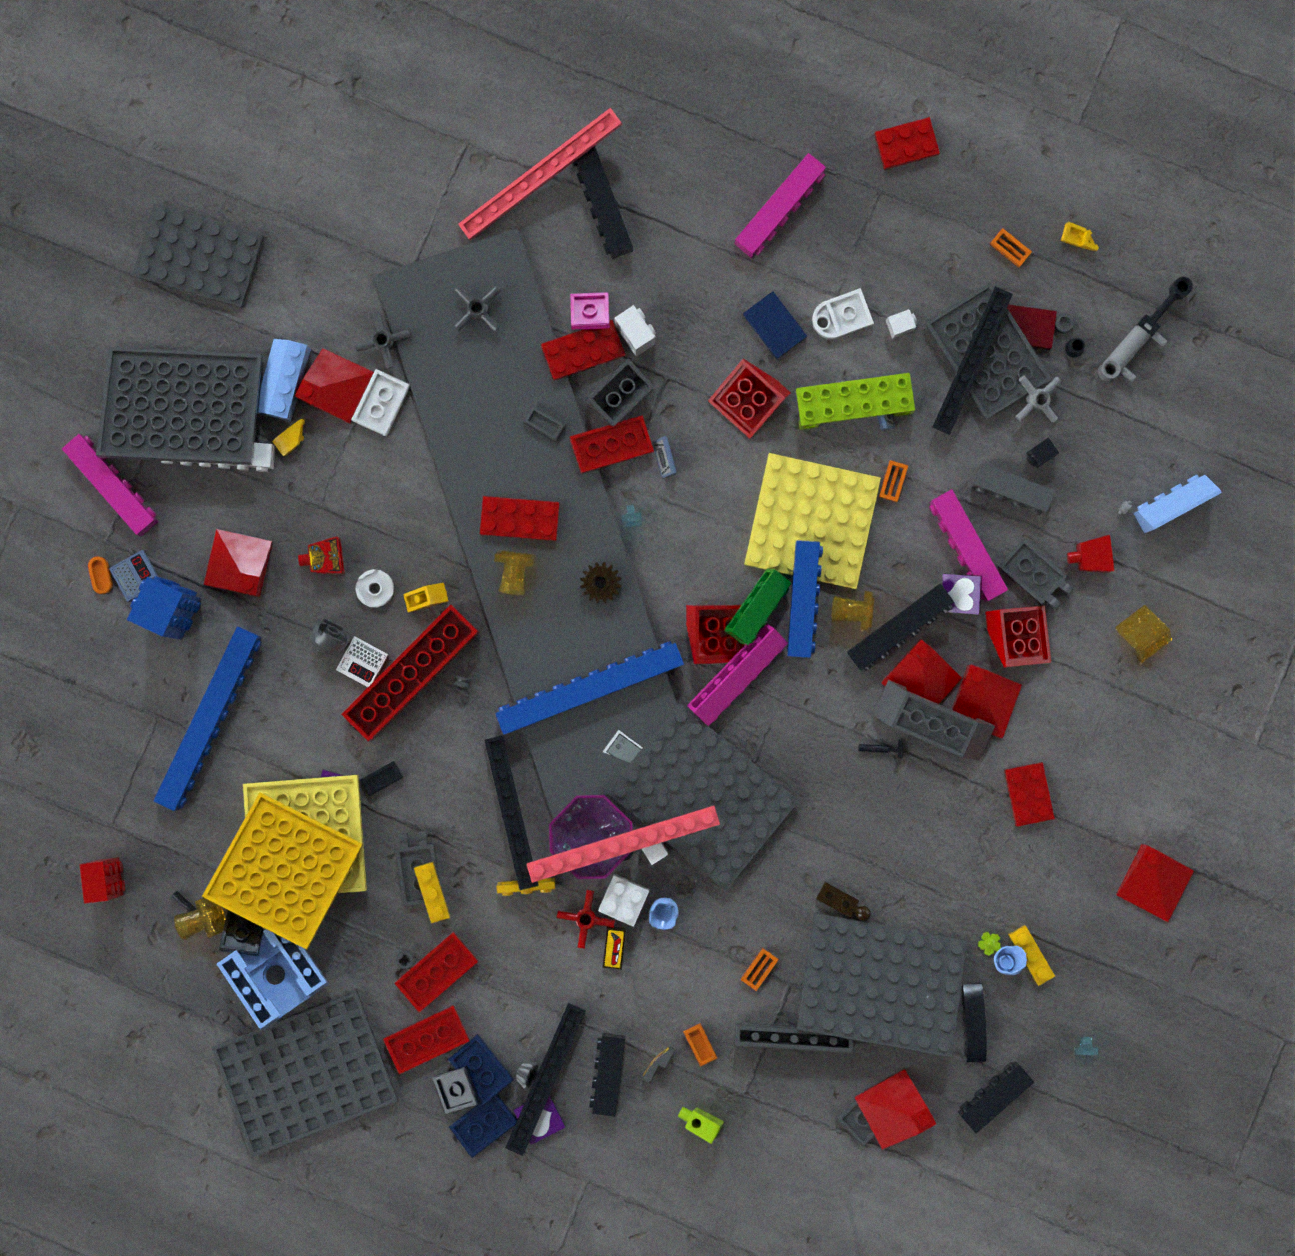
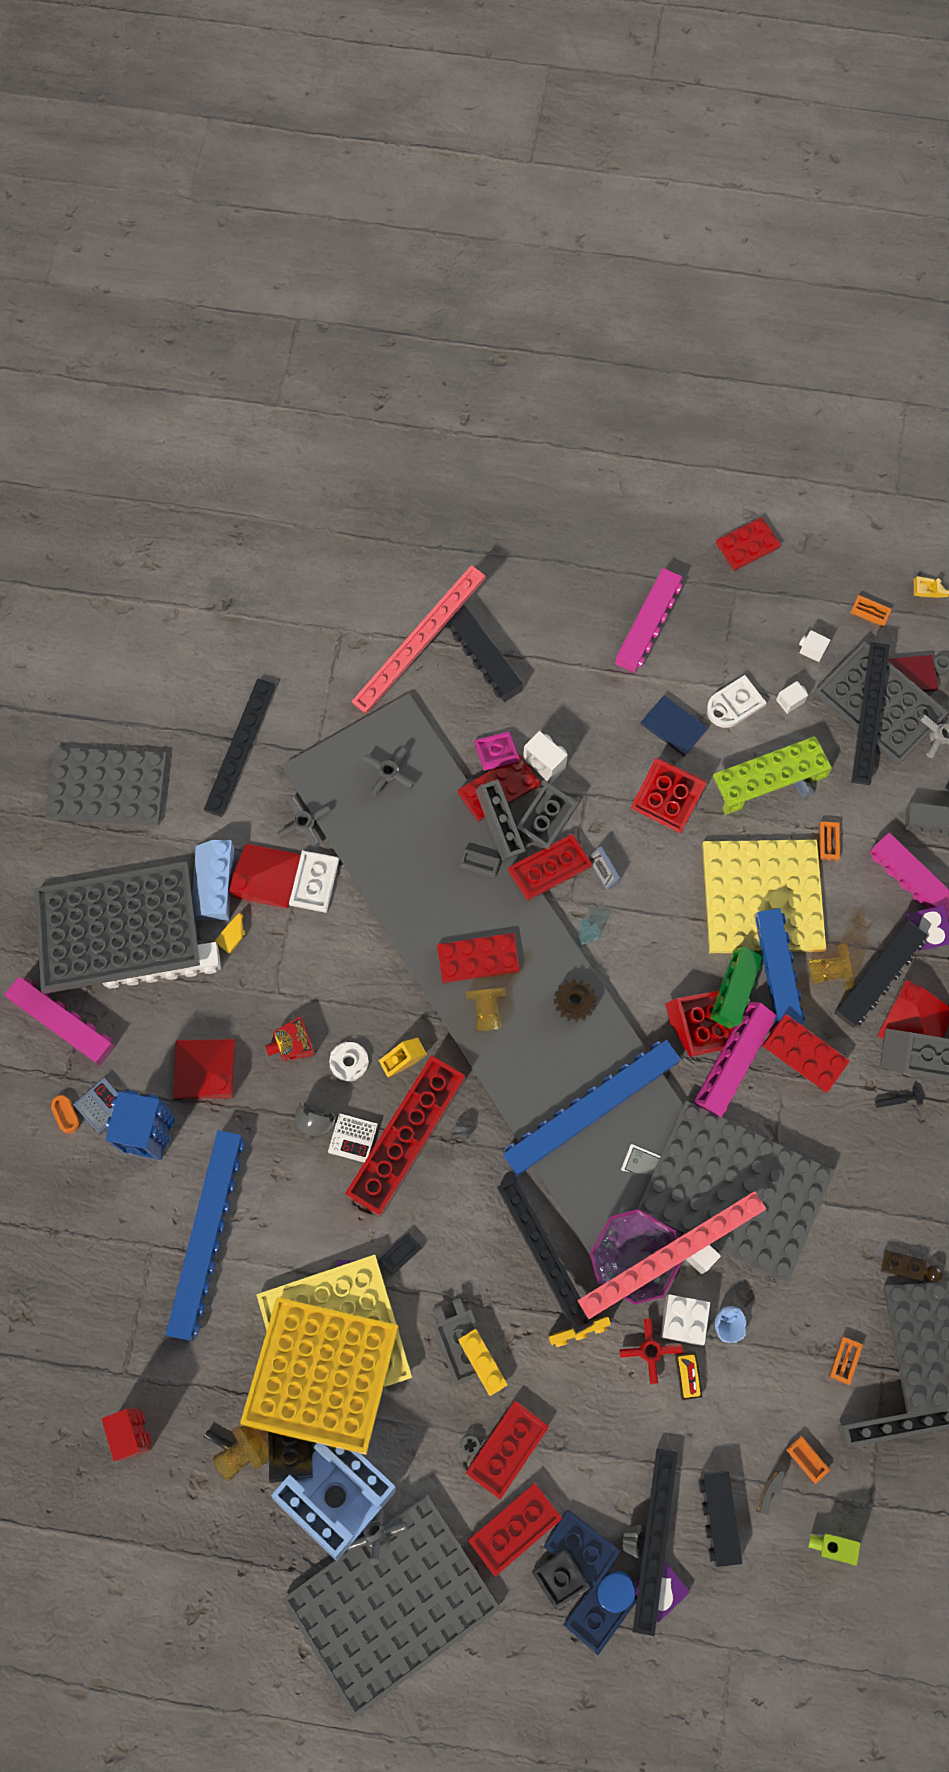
camera: 15 degrees left, 15 degrees down
(304, 1018) = (378, 1536): none -> dark grey bar
(337, 245) = (239, 748): none -> black plate
(500, 1112) = (616, 1592): none -> blue piece
(572, 387) = (500, 820): none -> dark grey brick
(805, 685) = (805, 1053): none -> red plate
(939, 273) = (814, 645): none -> white brick

